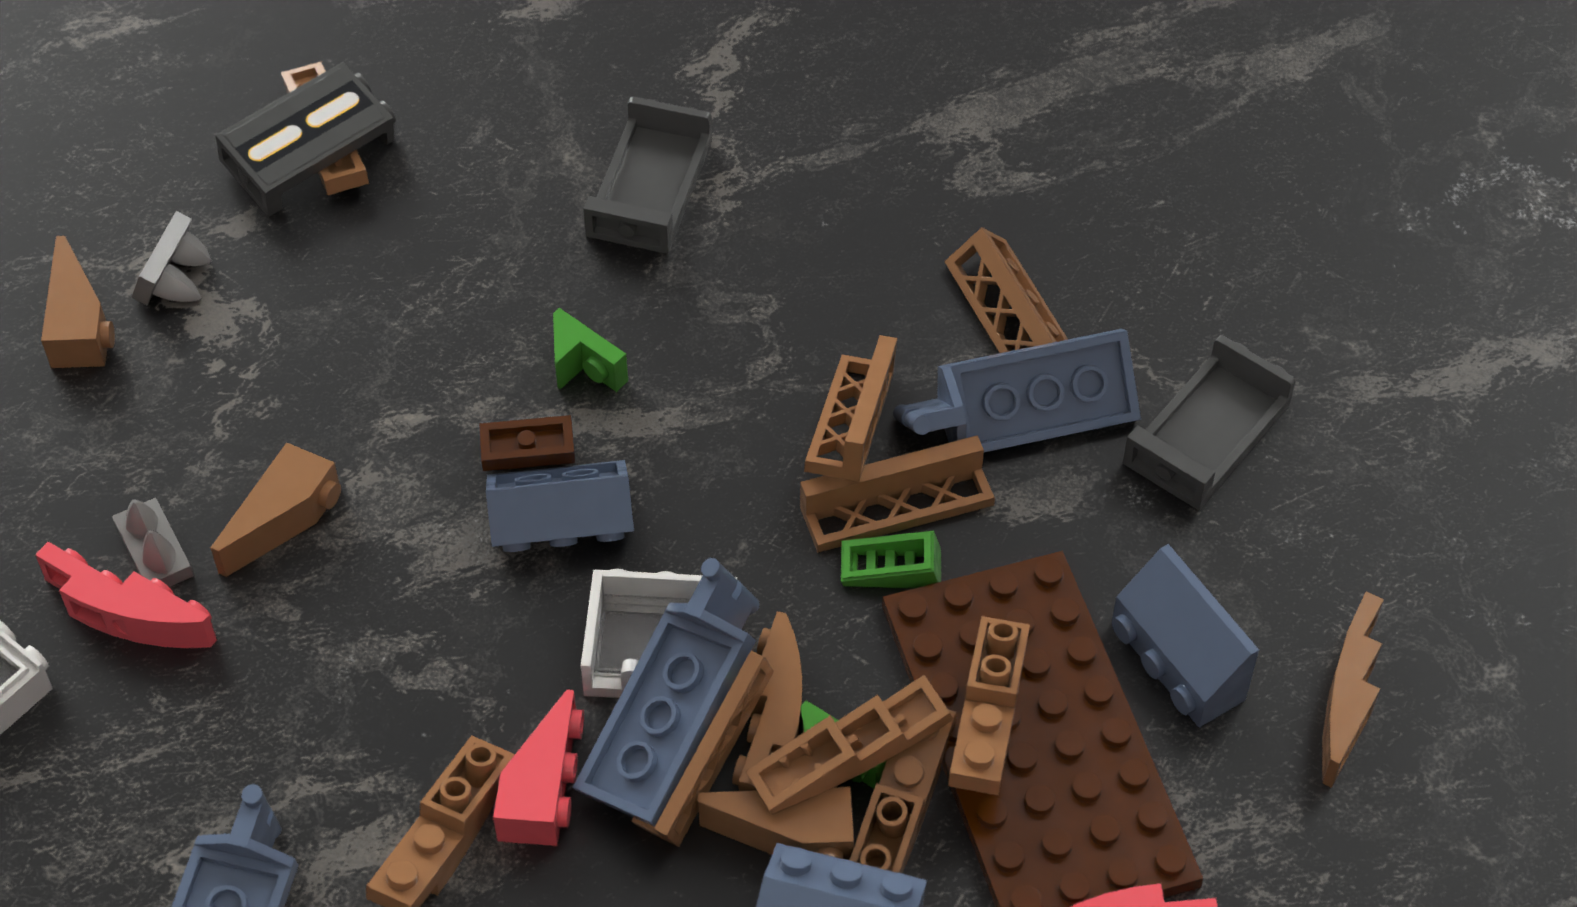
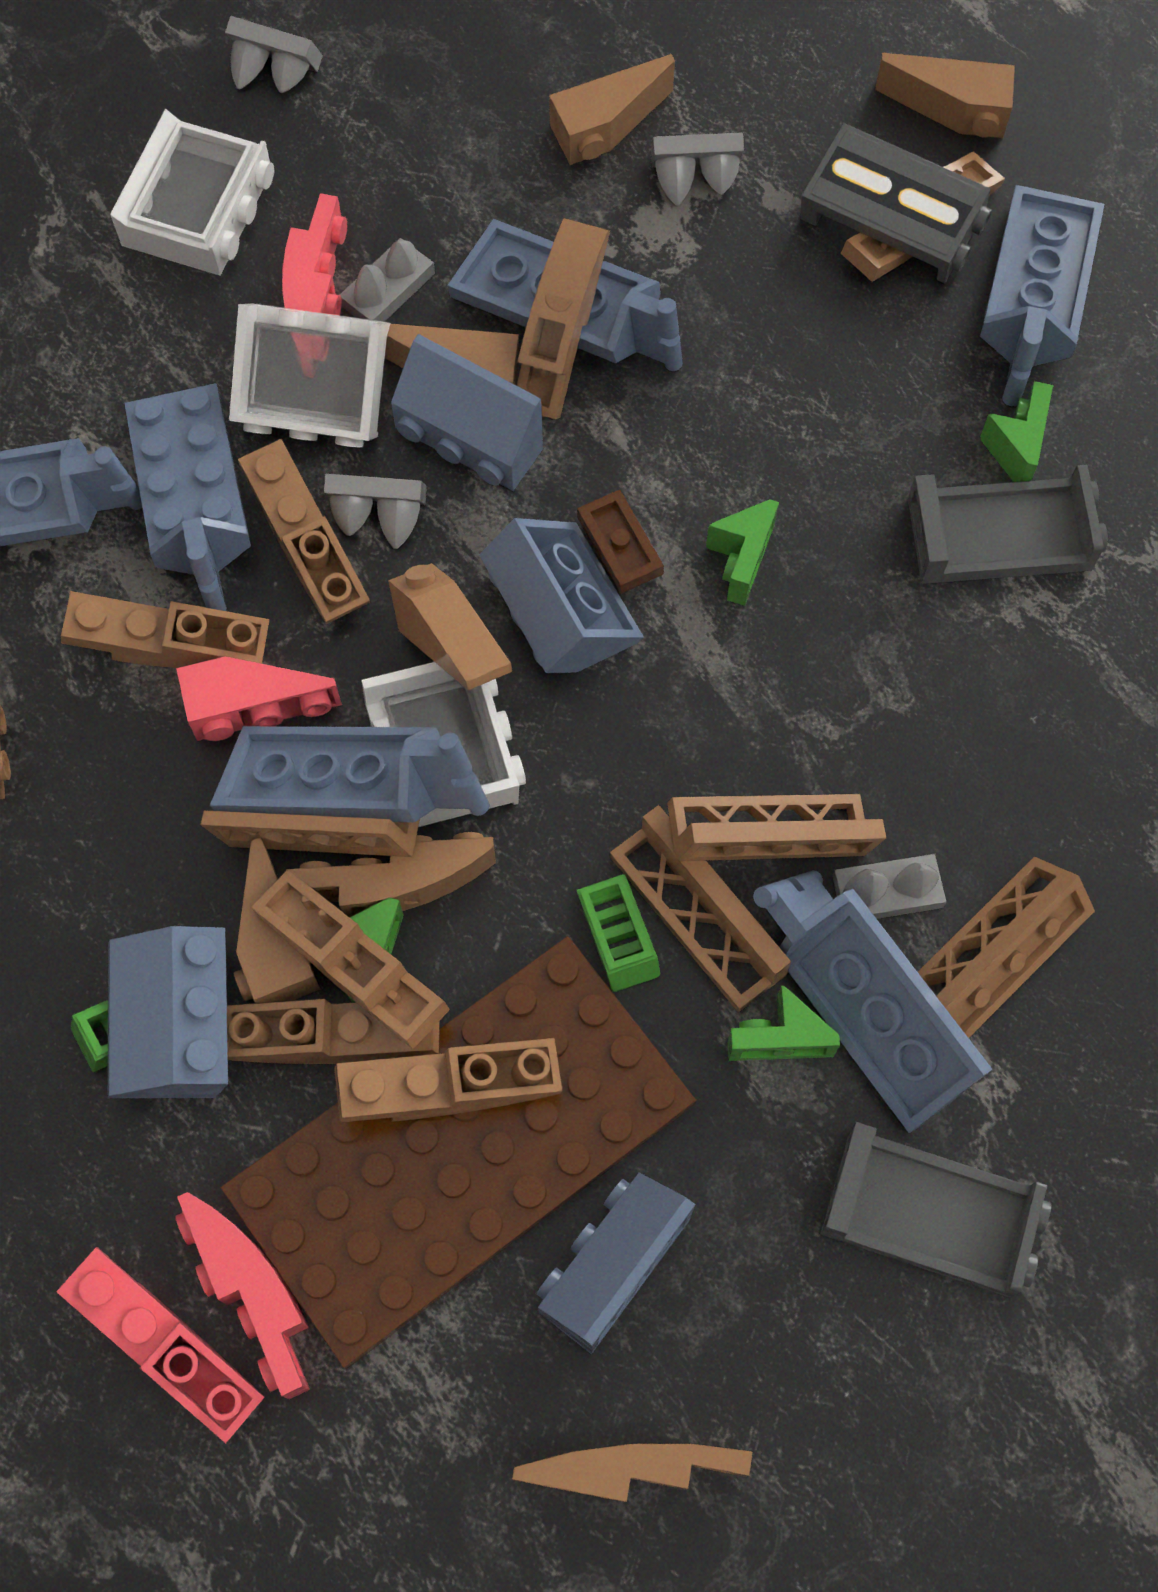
camera: 70 degrees right, 15 degrees up
(217, 62) = (955, 93): none -> medium nougat slope
(235, 618) = (307, 373): none -> window
(258, 399) = (625, 312): none -> sand blue hinge
(295, 761) = (188, 485): none -> sand blue hinge
(296, 395) = (560, 312): none -> medium nougat slope
(345, 508) = (467, 414): none -> sand blue slope
(394, 688) = (303, 532): none -> medium nougat slope
(399, 601) = (396, 503): none -> light grey tile
(441, 71) = (1040, 282): none -> sand blue hinge
(559, 582) = (446, 627): none -> medium nougat slope
(575, 134) = (1019, 439): none -> bright green slope
(931, 346) = (895, 885): none -> light grey tile
(1028, 464) = (798, 1035): none -> bright green slope

